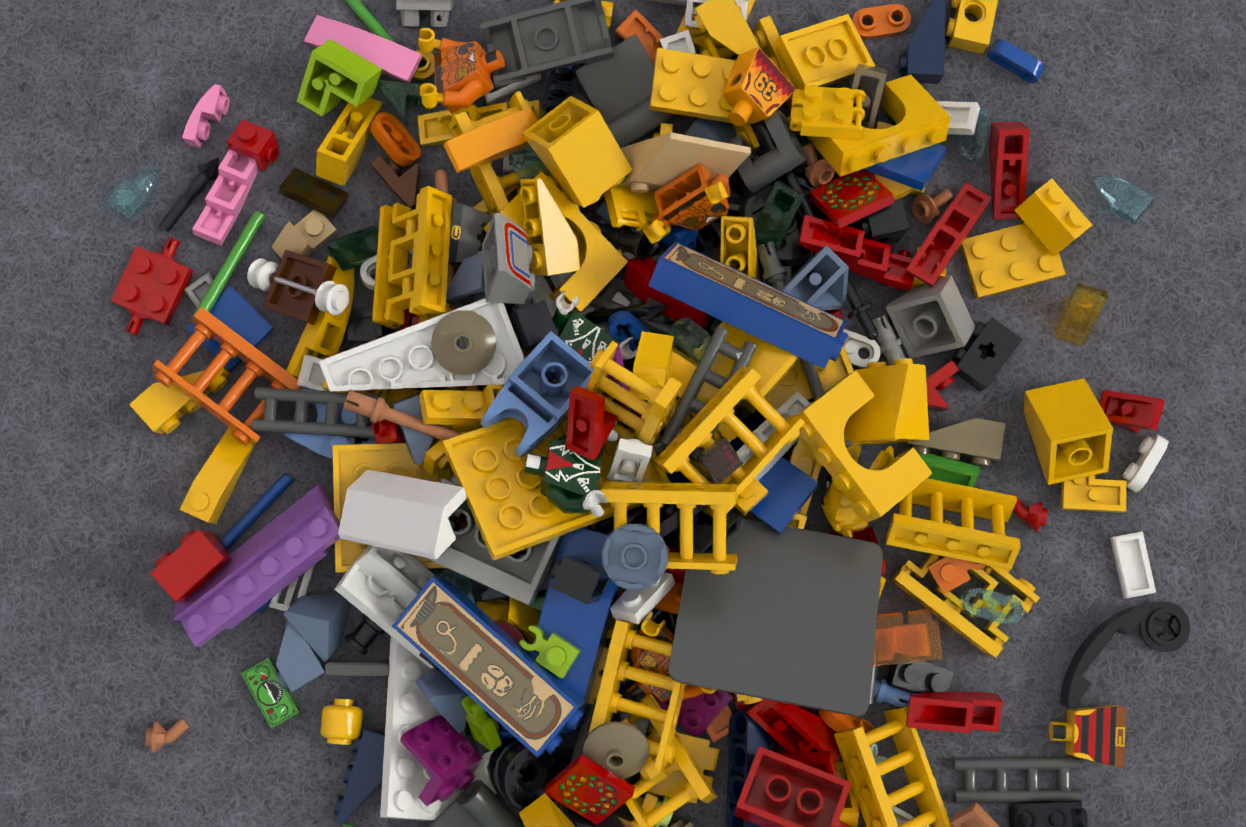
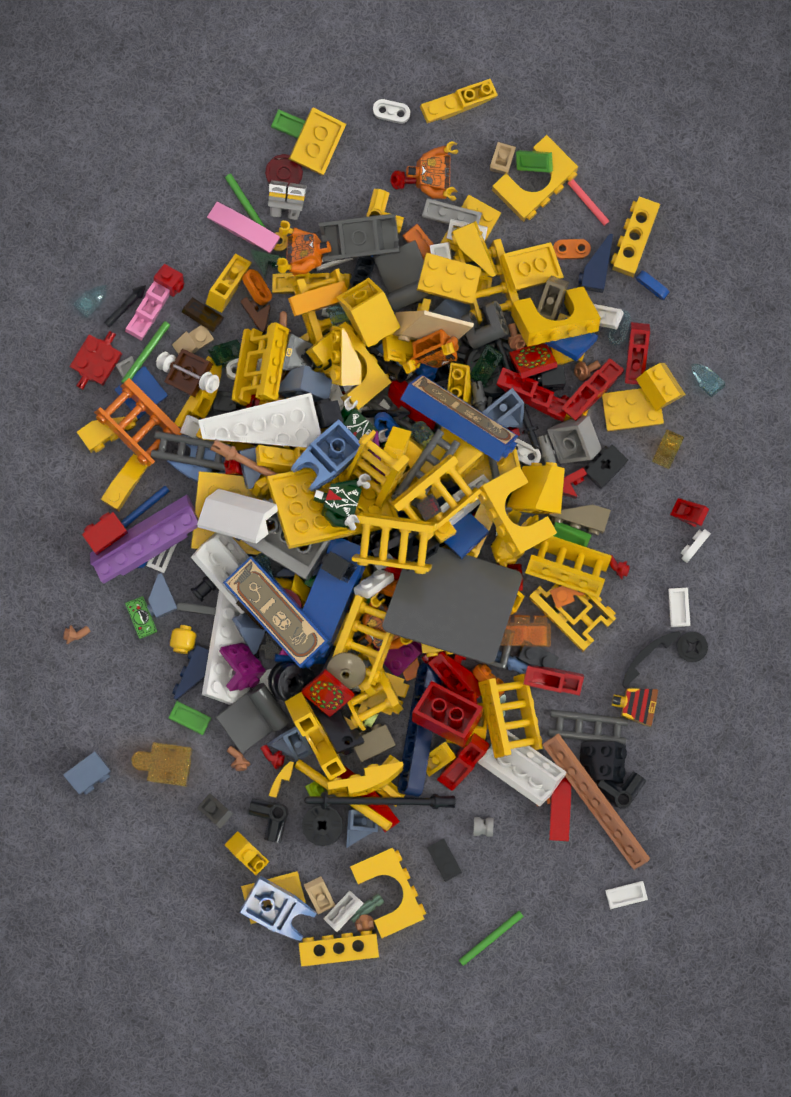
camera: 10 degrees right, 0 degrees up
(209, 107) = (144, 253): bright pink slope -> none
(320, 621) = (177, 577): sand blue slope -> none
(336, 74) = (226, 243): lime brick -> none
(481, 342) = (296, 417): dark tan dish -> none
(482, 726) = (268, 651): lime plate -> none
(506, 262) = (317, 375): light grey slope -> none
(554, 653) = (316, 610): lime plate -> none
(588, 423) = (353, 475): red slope -> none
(629, 461) = (375, 501): white plate -> none
(635, 556) = (371, 557): sand blue tile -> none
(755, 88) = (483, 285): light orange torso -> none
(828, 112) = (525, 306): yellow plate -> none
(993, 599) = (583, 623): clear light blue beam -> none
(1068, 431) = (648, 519): yellow slope -> none
(1093, 495) = (654, 558): yellow plate -> none

